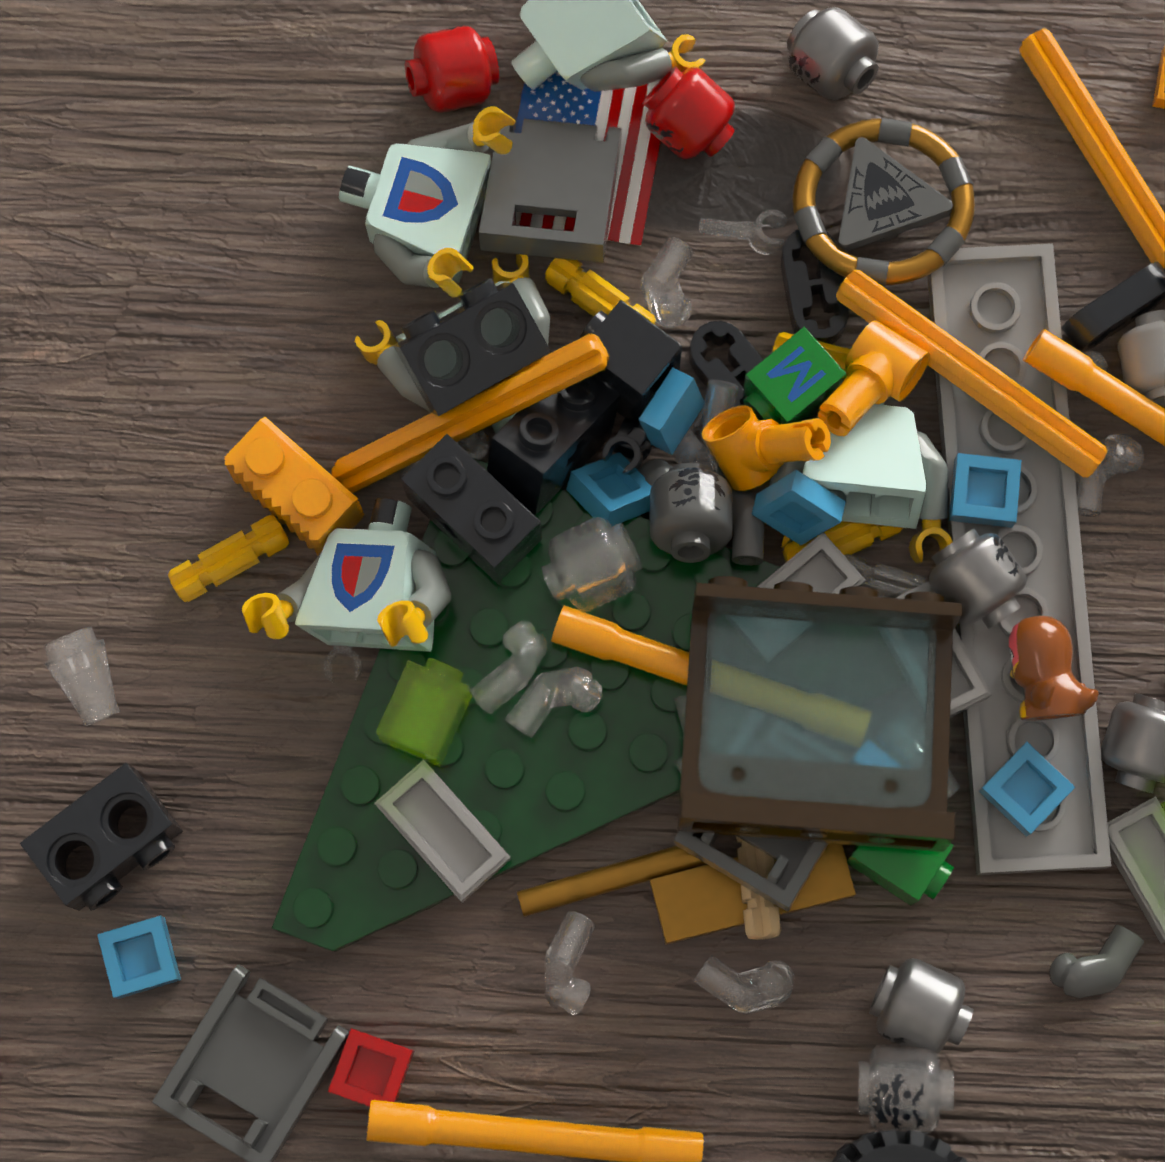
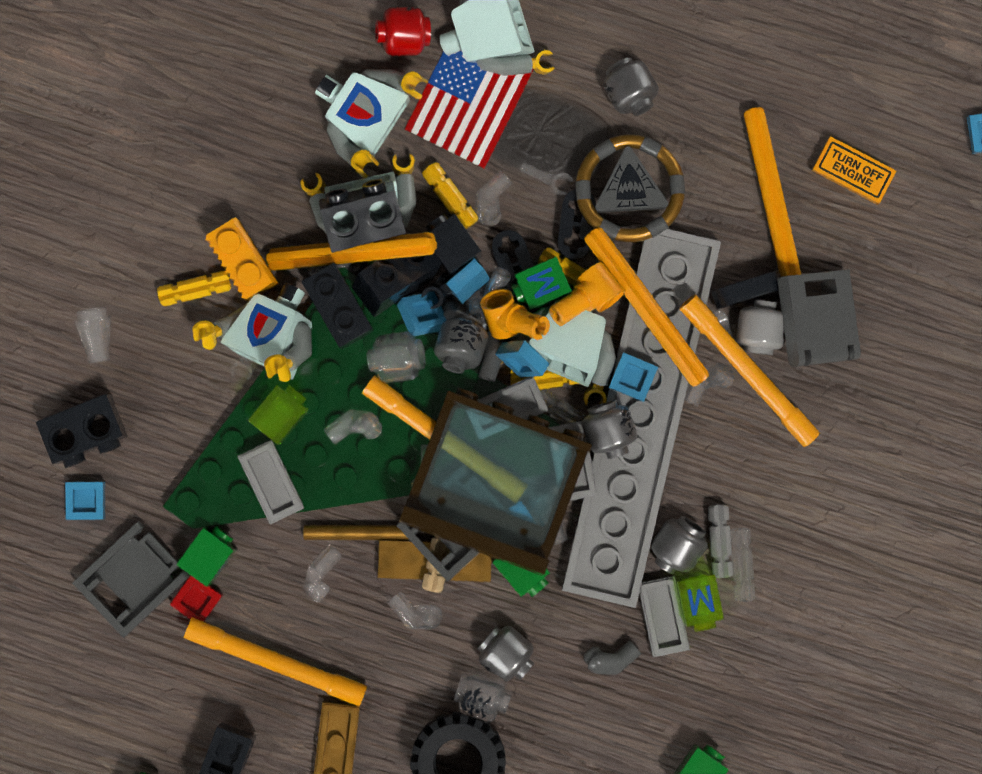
camera: 15 degrees right, 10 degrees up
(370, 986) = (207, 555): none -> green brick
(516, 671) = (337, 405): clear arm -> none
(554, 173) = (445, 115): dark grey container -> none
(689, 113) = (534, 100): red head -> none
(1026, 789) = (601, 553): dark azure tile -> none
(1043, 667) = (630, 488): dark orange animal -> none

